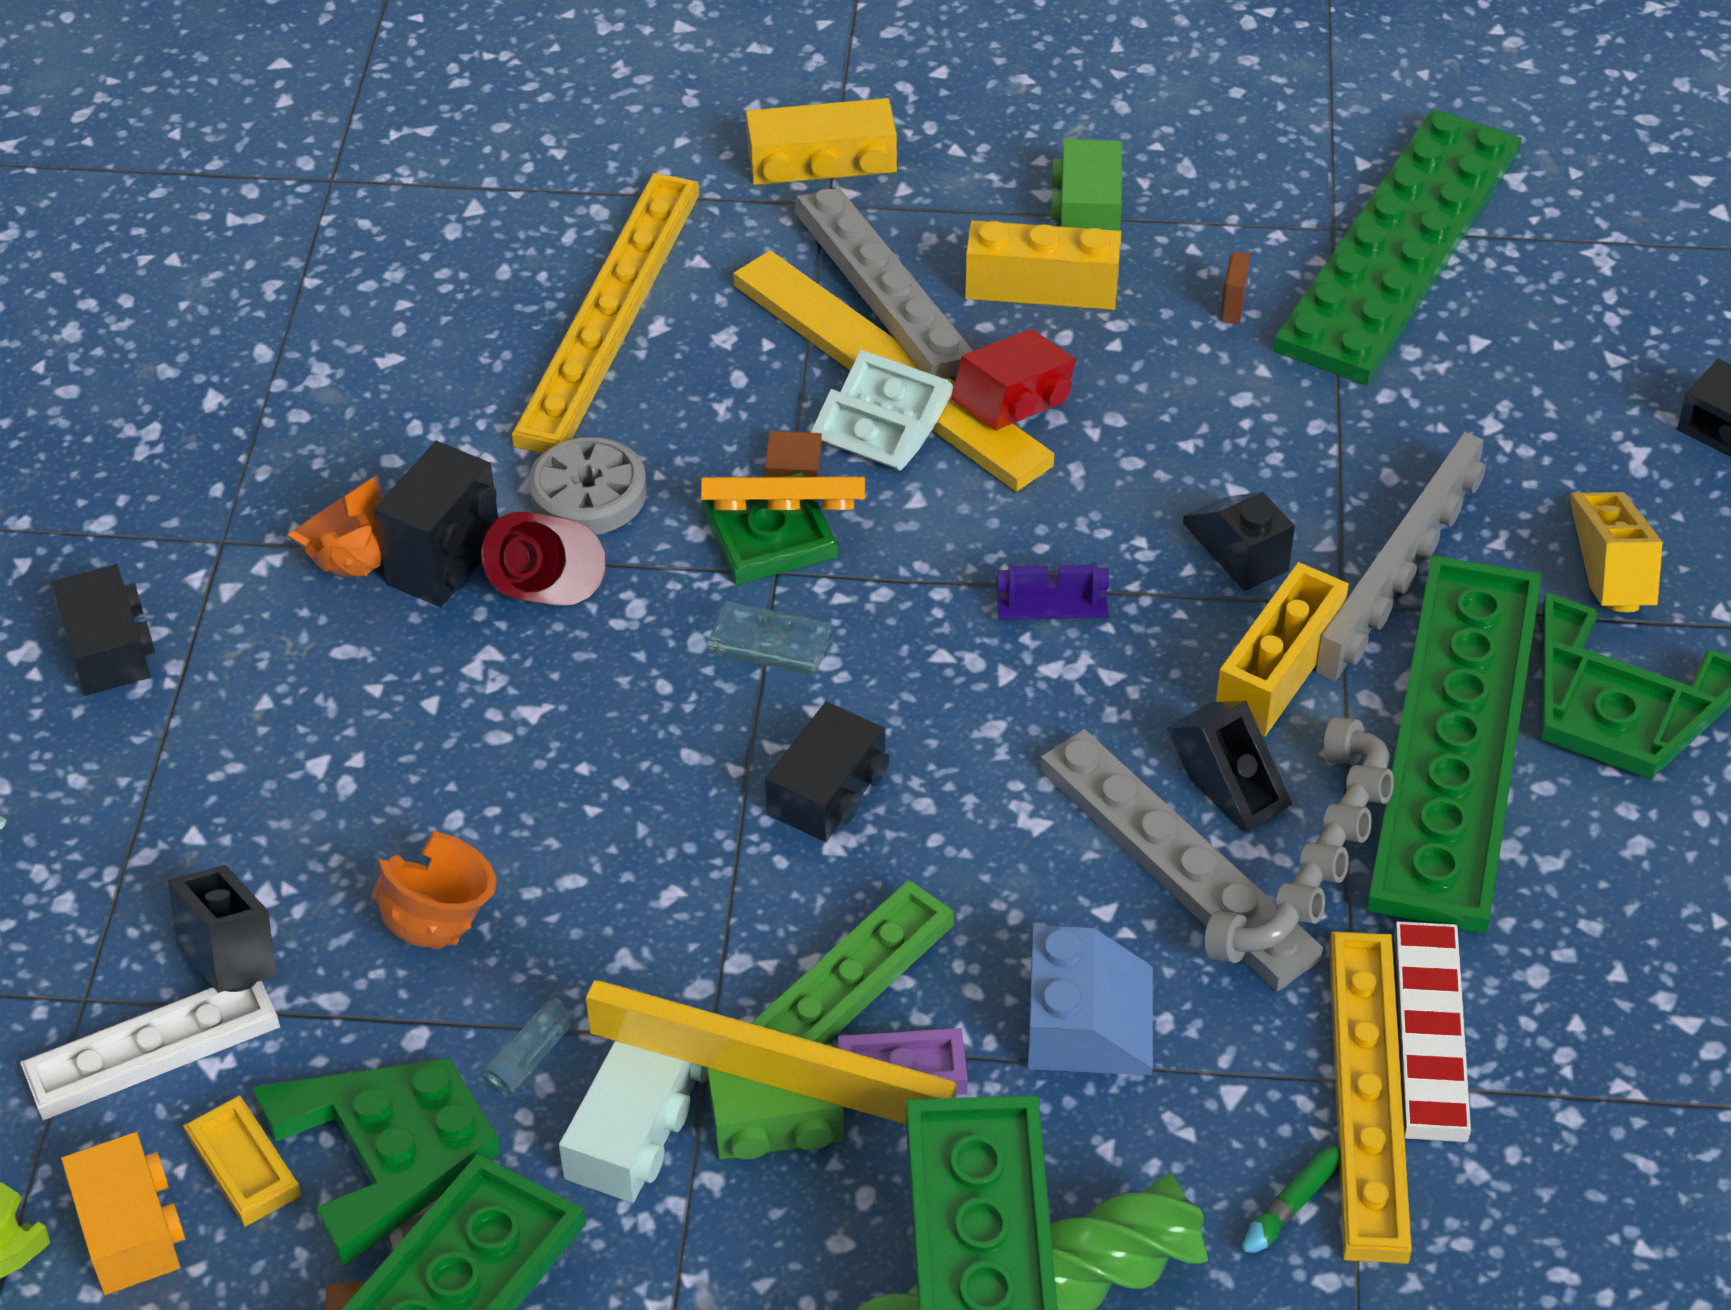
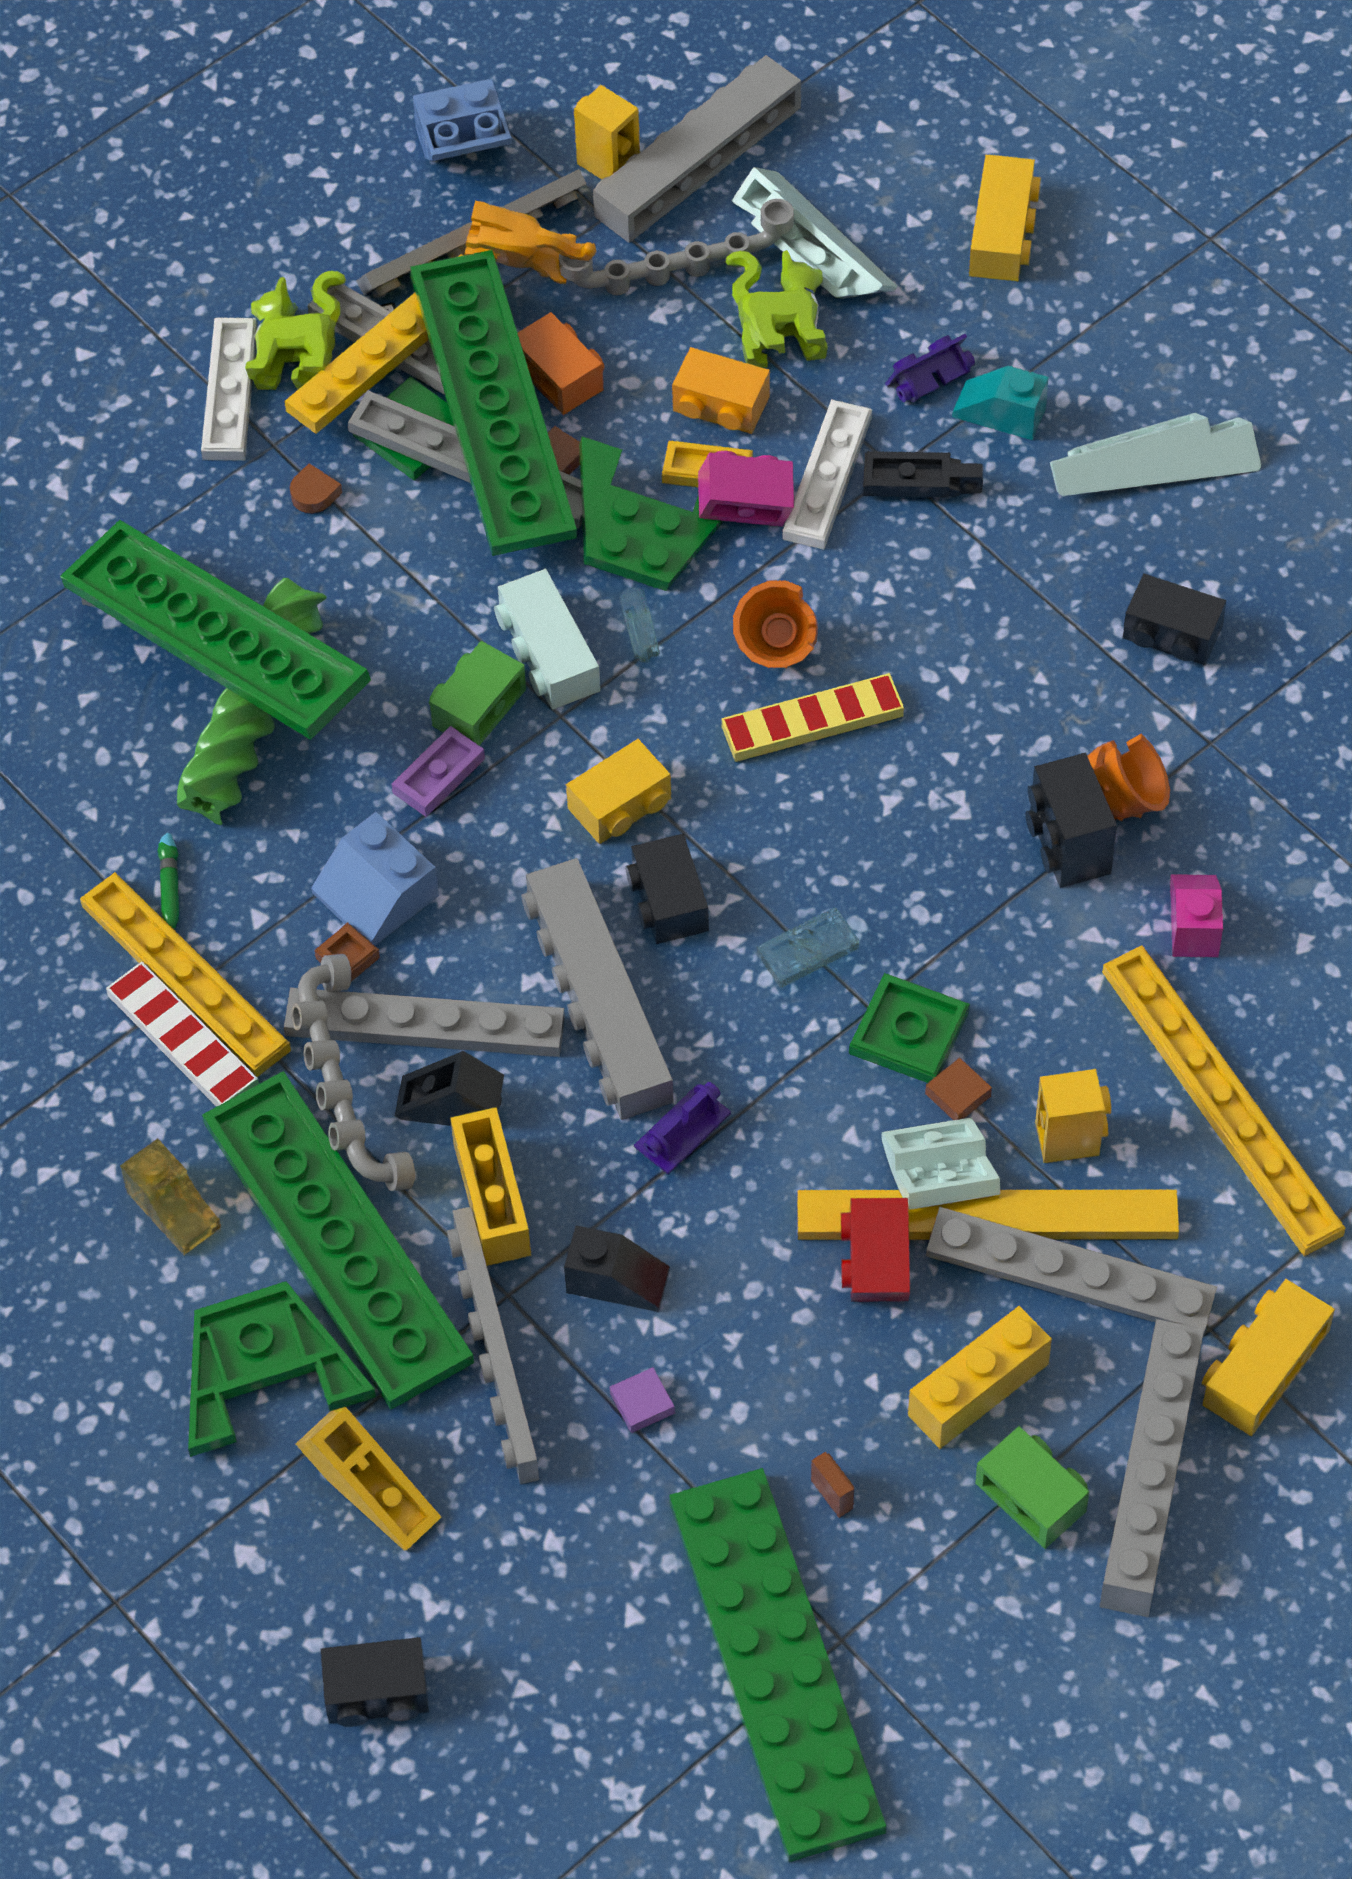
camera: 135 degrees right, 10 degrees up
(88, 953) = (919, 475): none -> black hinge
(222, 929) = (851, 518): black brick -> none
(262, 1059) = (746, 489): none -> dark pink brick
(443, 406) = (1196, 915): none -> dark pink slope
(499, 825) = (812, 717): none -> tile
(542, 558) = (1000, 865): dark red piece -> none
(609, 465) = (1054, 979): light grey wheel -> none
(753, 339) = (1071, 1115): none -> yellow brick
(759, 1053) = (481, 672): yellow tile -> none
(760, 892) = (619, 791): none -> yellow brick
(783, 492) = (912, 1029): light orange plate -> none
(860, 966) = (519, 793): bright green plate -> none
(989, 140) = (1151, 1468): none -> light grey brick
(990, 748) = (598, 988): none -> light grey brick
(1183, 978) = (354, 945): none -> dark orange tile
(1316, 448) = (642, 1400): none -> medium lavender tile
(1589, 887) = (168, 1196): none -> clear yellow arch

